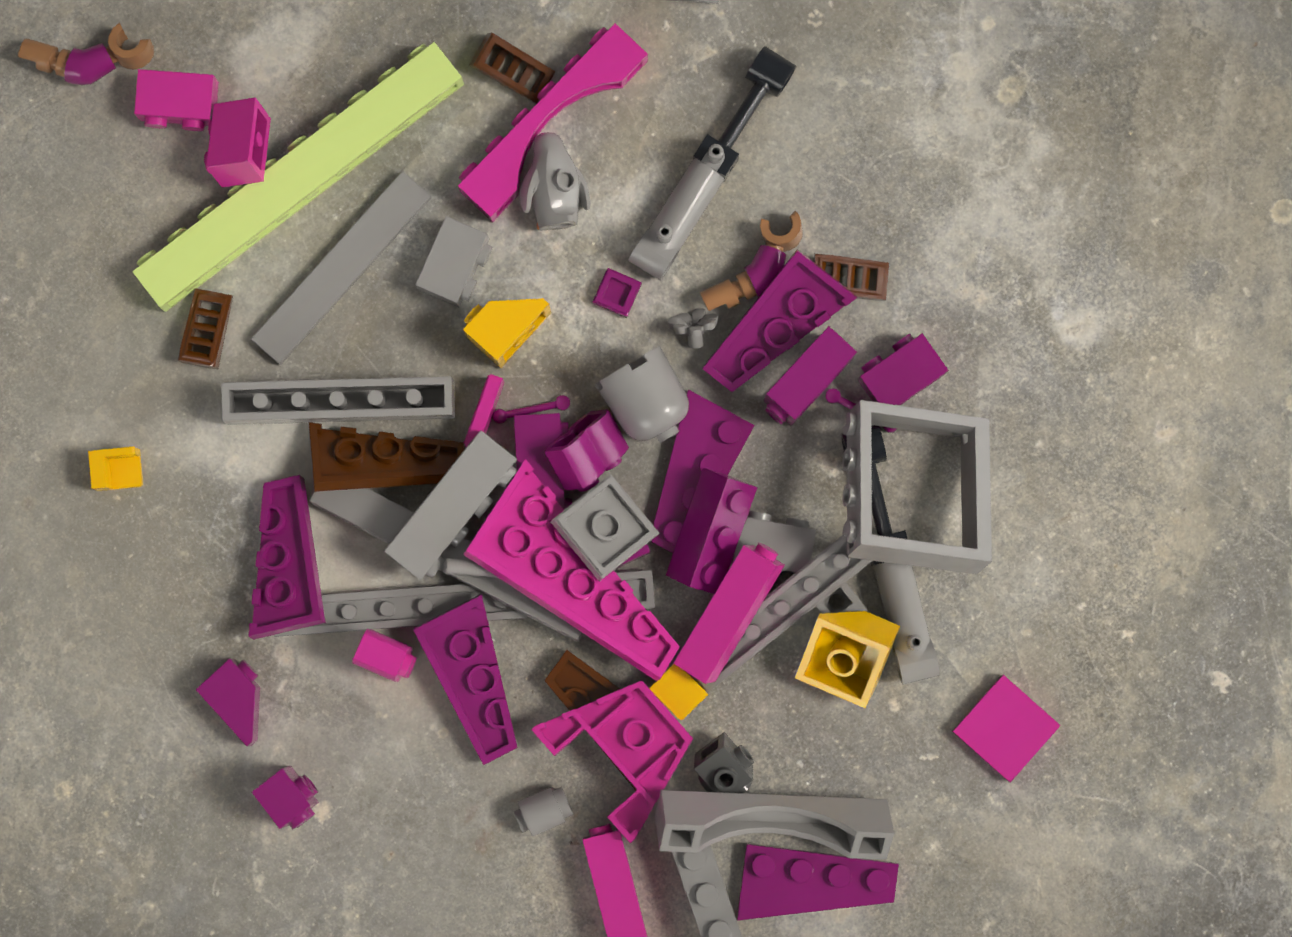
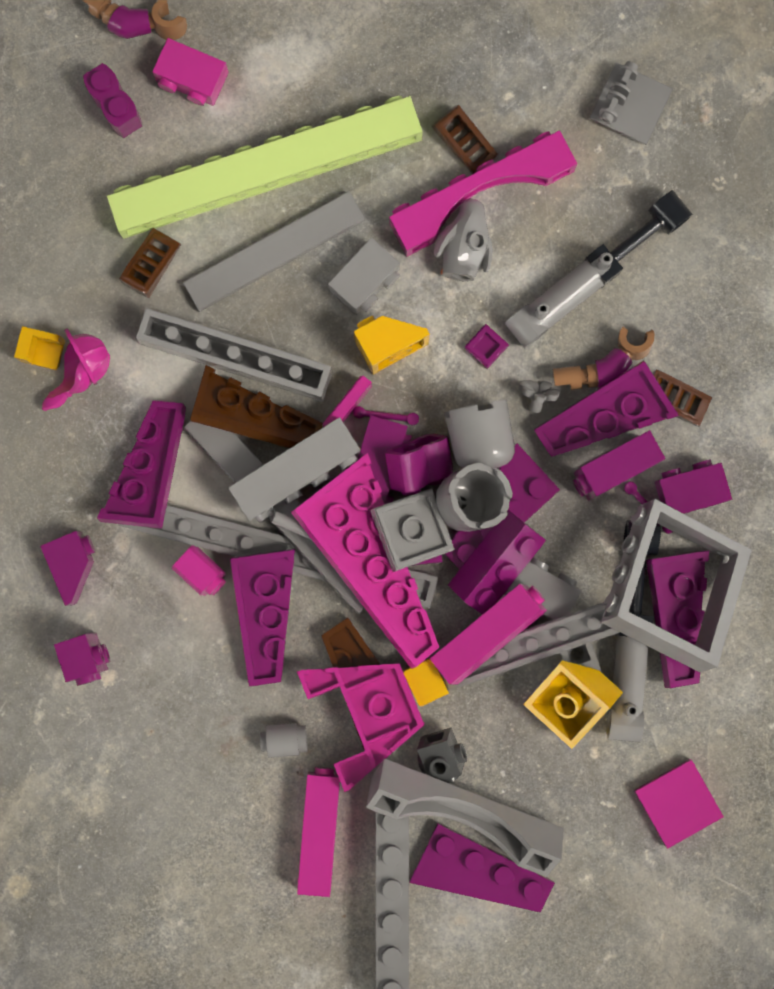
camera: 20 degrees right, 0 degrees up
(104, 163) = (112, 100): none -> magenta brick
(172, 468) = (84, 363): none -> dark pink piece
(238, 142) = (226, 122): dark pink brick -> none
(669, 460) = (482, 493): none -> light grey cylinder
(929, 509) = (677, 606): none -> magenta wing

